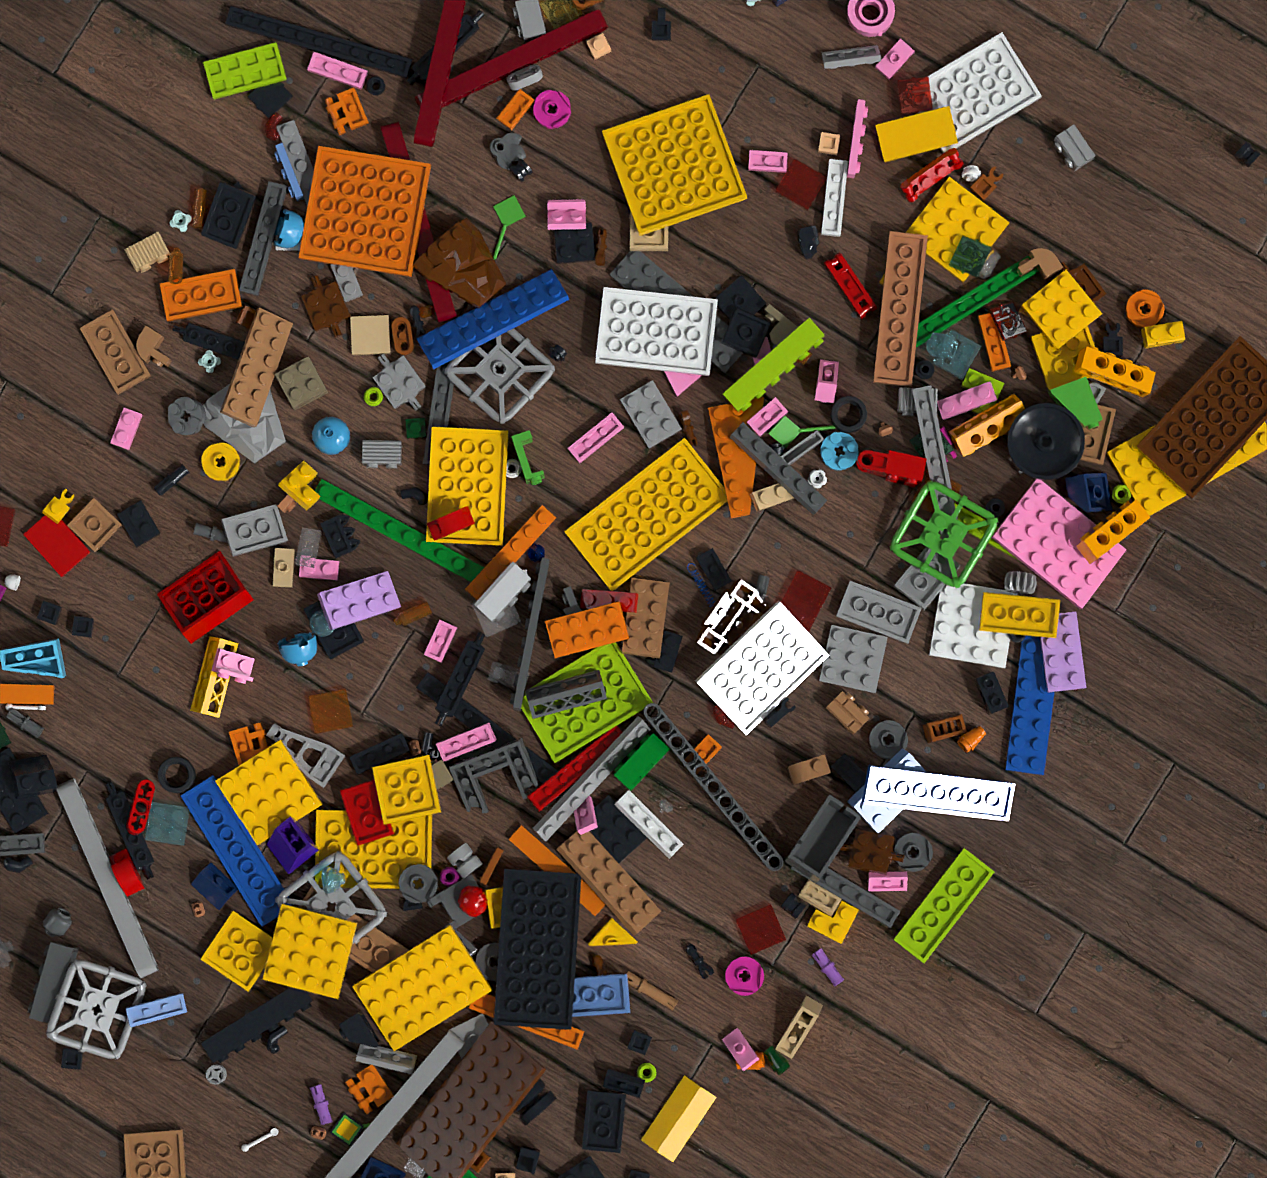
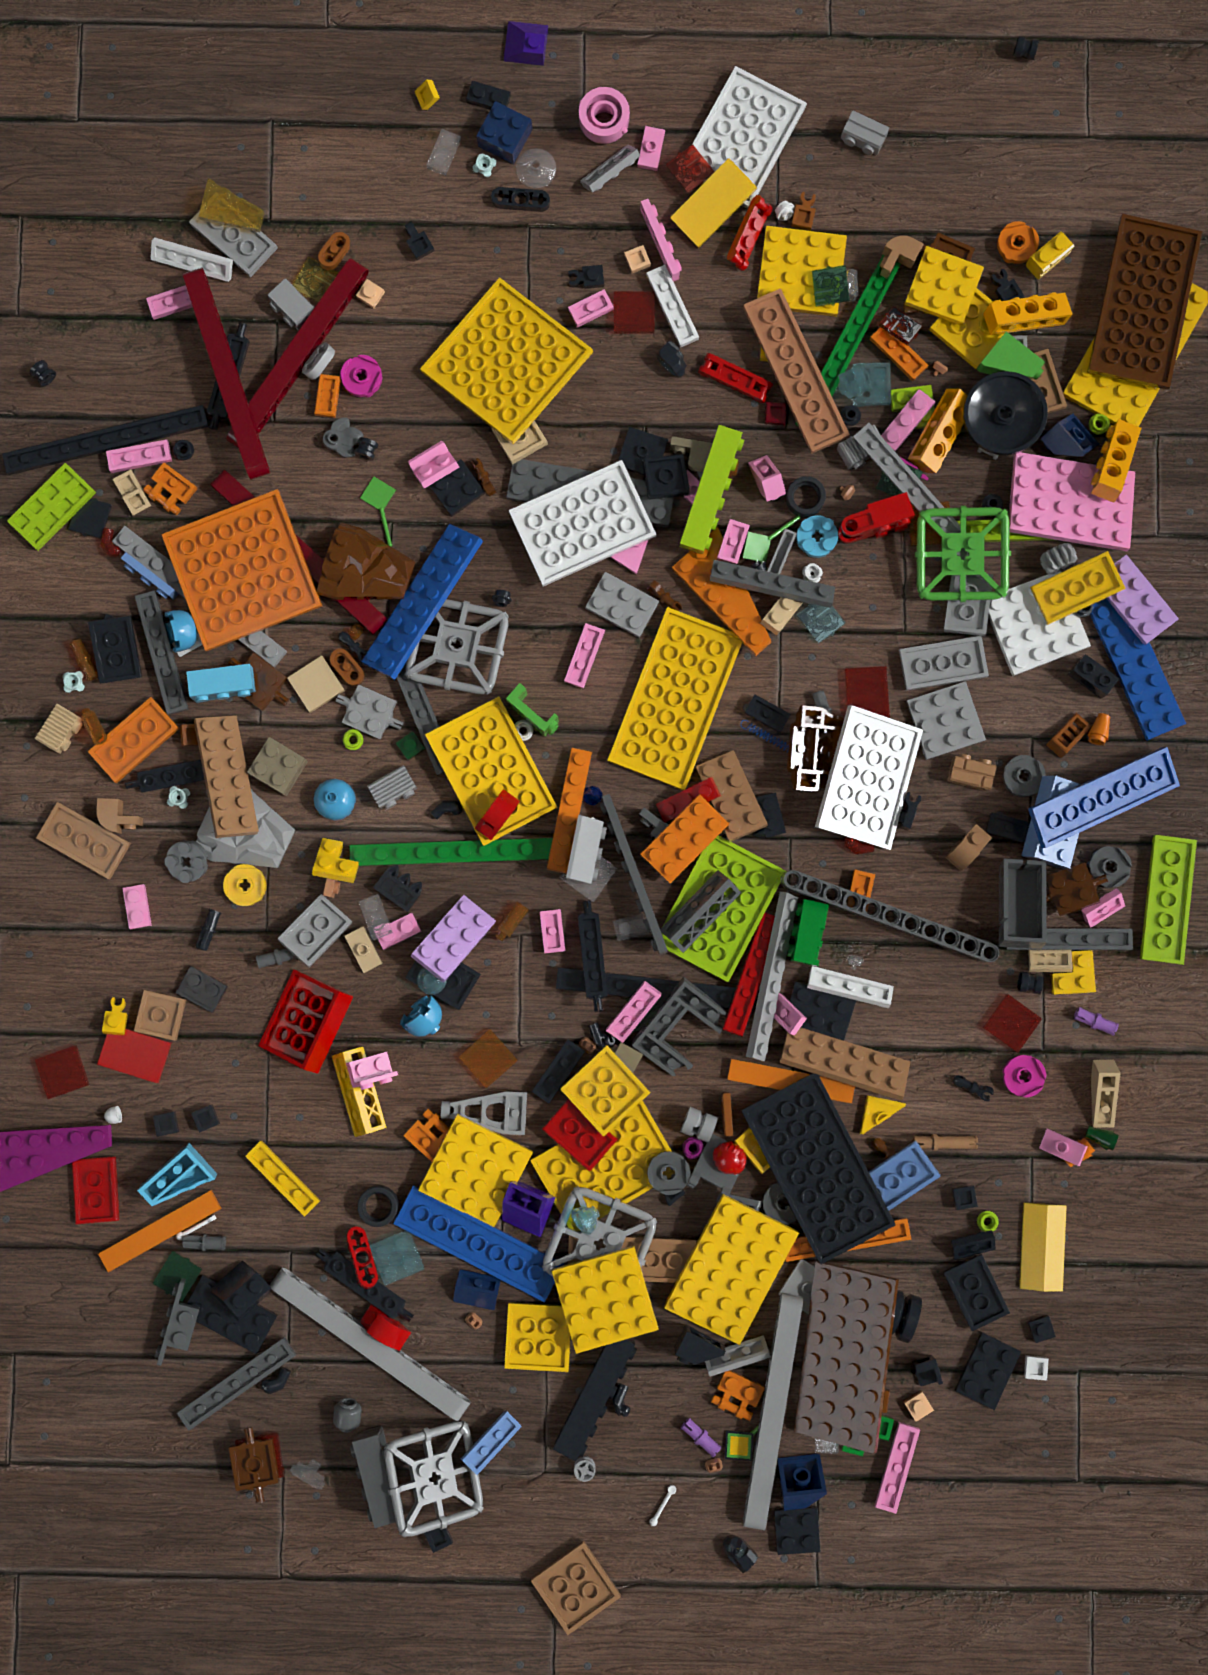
camera: 30 degrees left, 0 degrees up
(115, 709) = (282, 1178): none -> yellow plate
(296, 291) = (221, 683): none -> medium azure wedge
(315, 96) = (132, 492): none -> tan slope
(773, 52) = (536, 194): none -> black beam
(783, 135) = (591, 276): none -> black plate
(788, 29) = (539, 176): none -> clear dish
(801, 521) = (820, 621): none -> clear light blue piece
(865, 333) = (775, 413): none -> dark red tile

